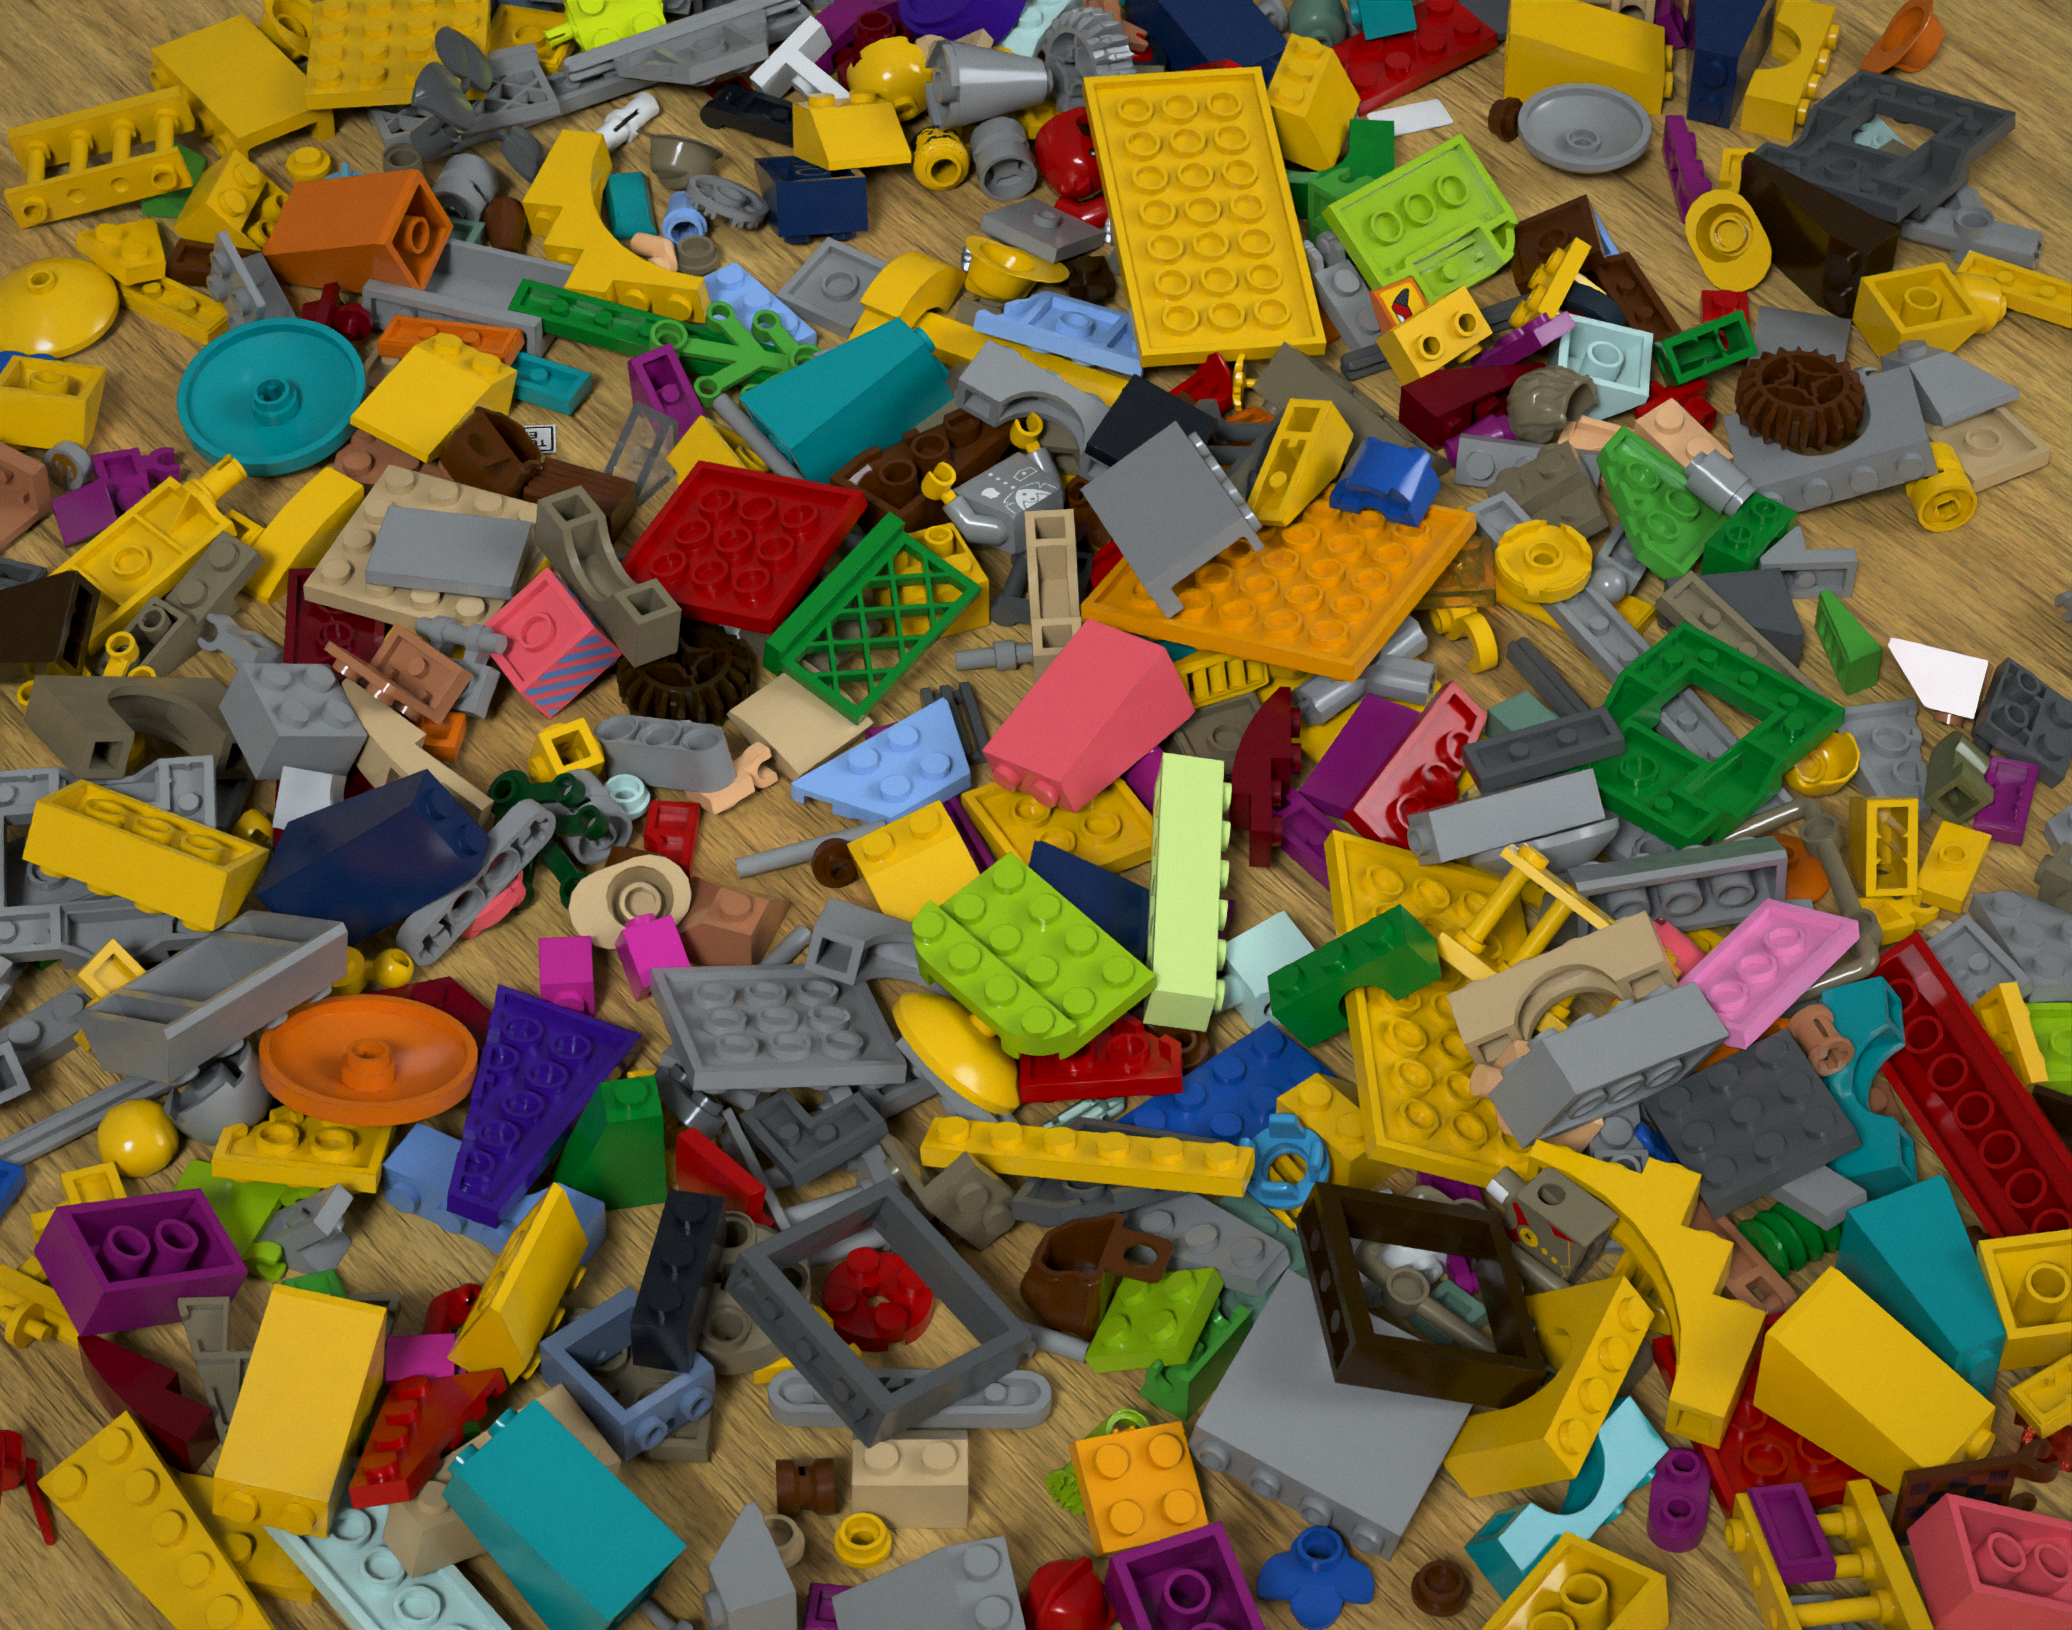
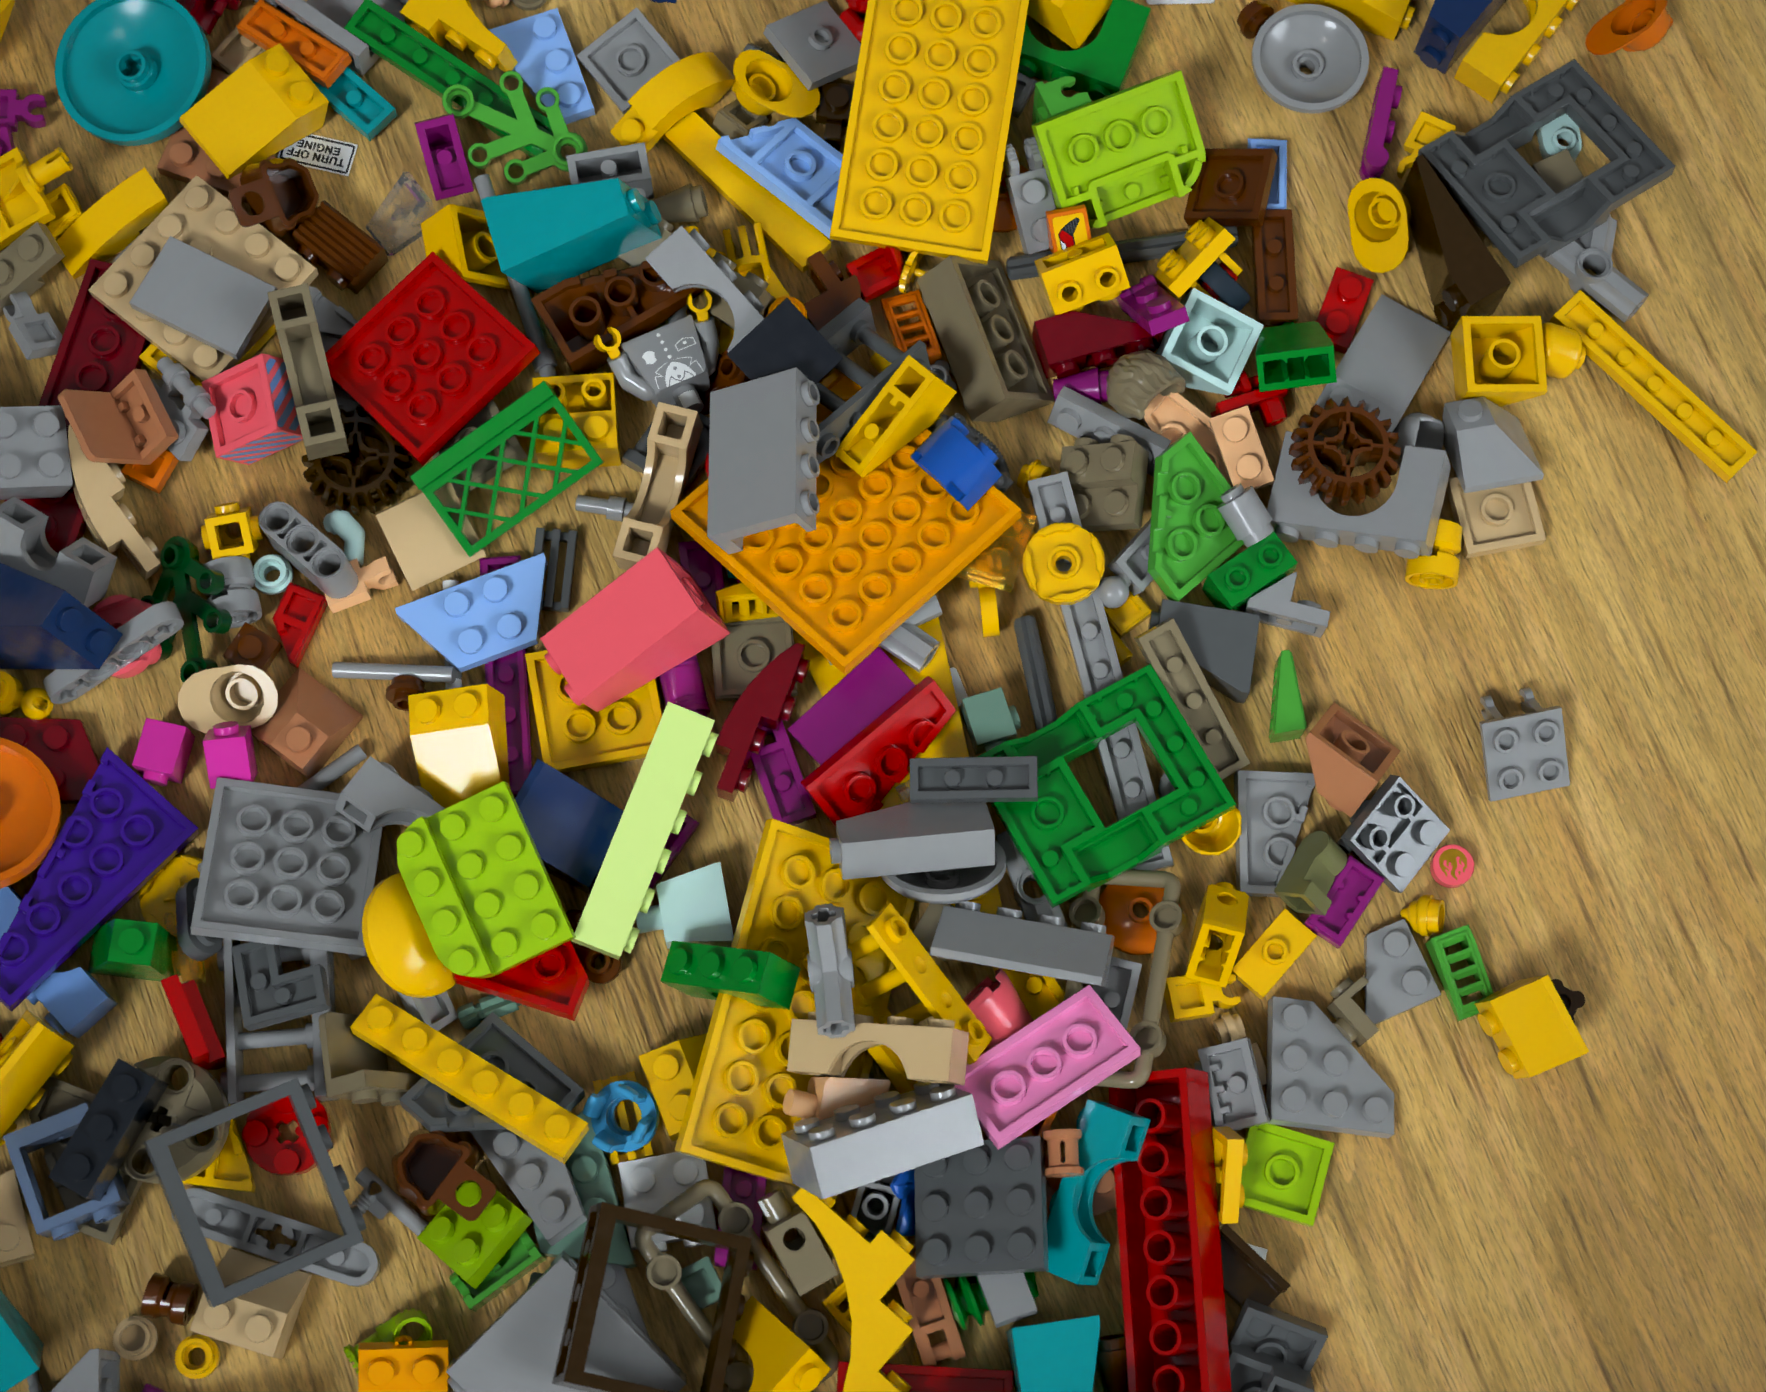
camera: 15 degrees right, 30 degrees up
(1233, 1090) = (616, 1025): blue plate -> none
(1468, 915) = (830, 970): none -> light grey piece

